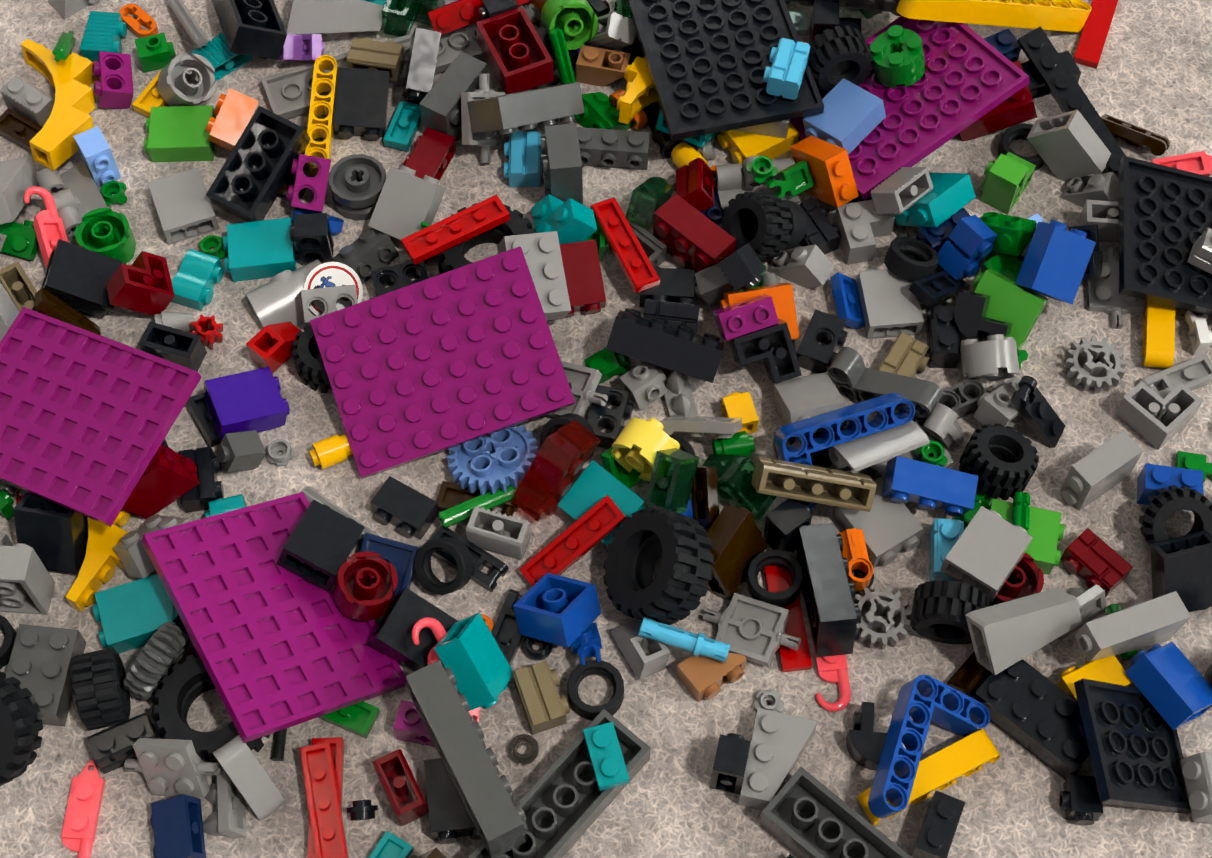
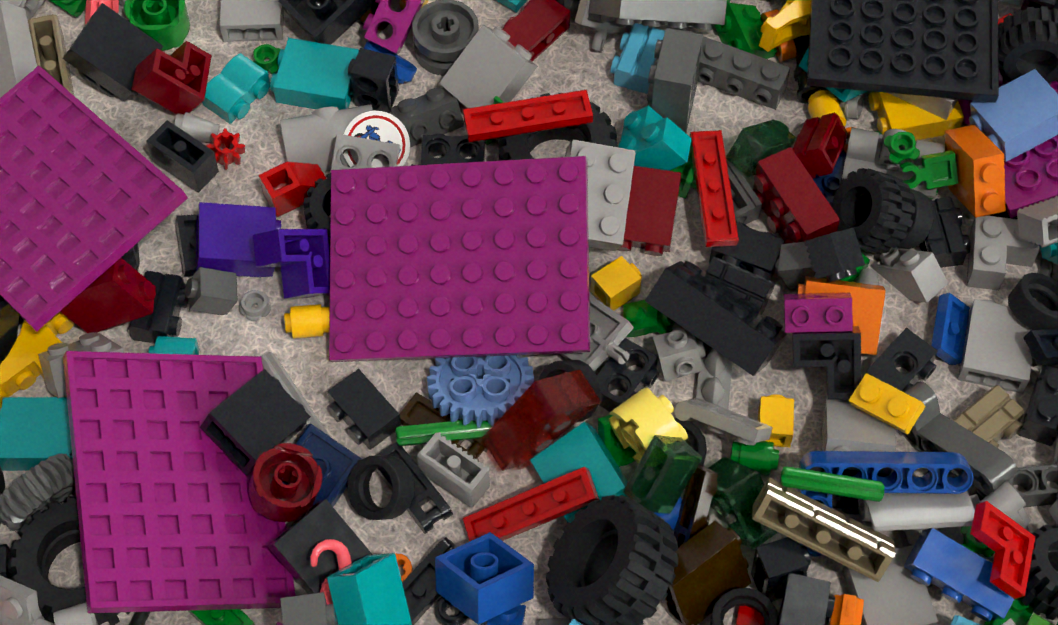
camera: 20 degrees right, 0 degrees up
(54, 307) = (81, 85): dark brown plate -> none
(308, 401) = (302, 259): none -> dark purple brick
(574, 343) = (616, 283): none -> yellow brick
(787, 68) = (969, 39): medium azure brick -> none
(808, 446) = (832, 484): none -> green axle
(824, 372) = (887, 403): none -> yellow plate
(961, 450) = (1011, 545): none -> red plate

